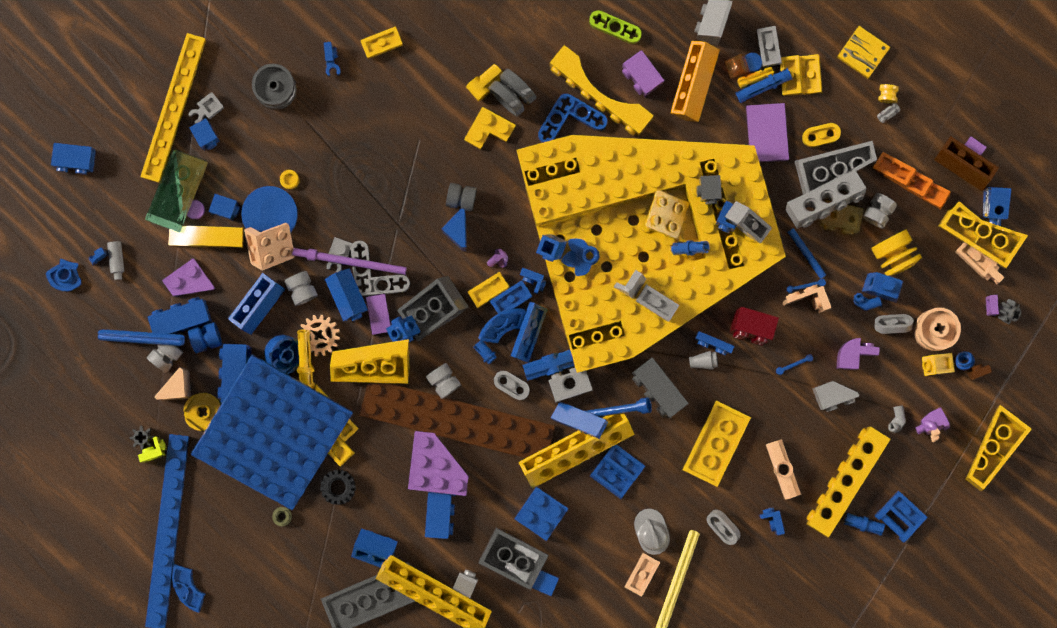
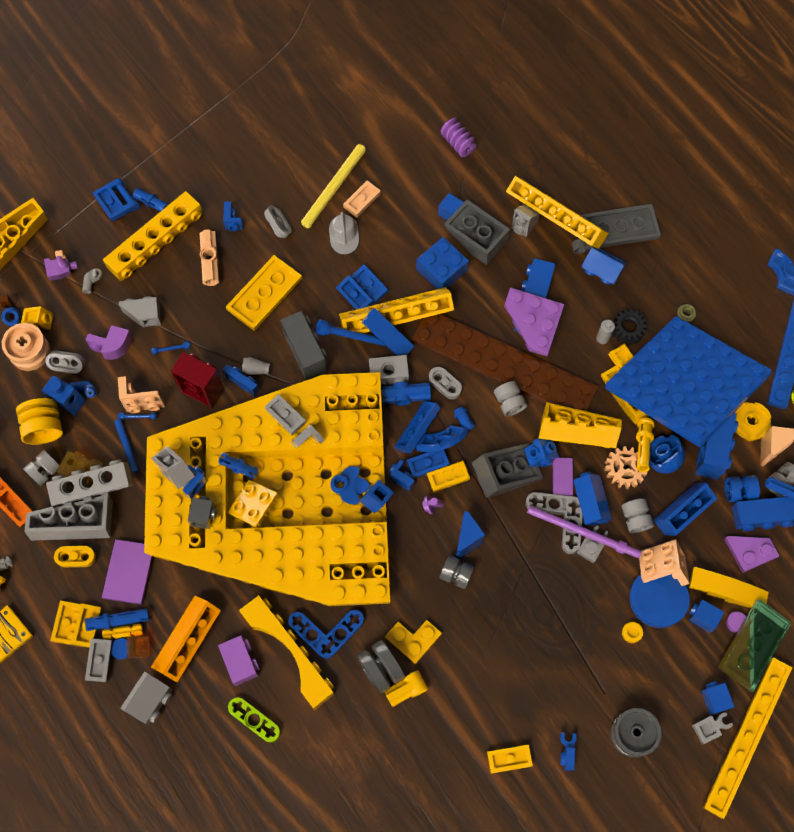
camera: 170 degrees left, 15 degrees down
(361, 472) = (605, 331): none -> light grey cylinder

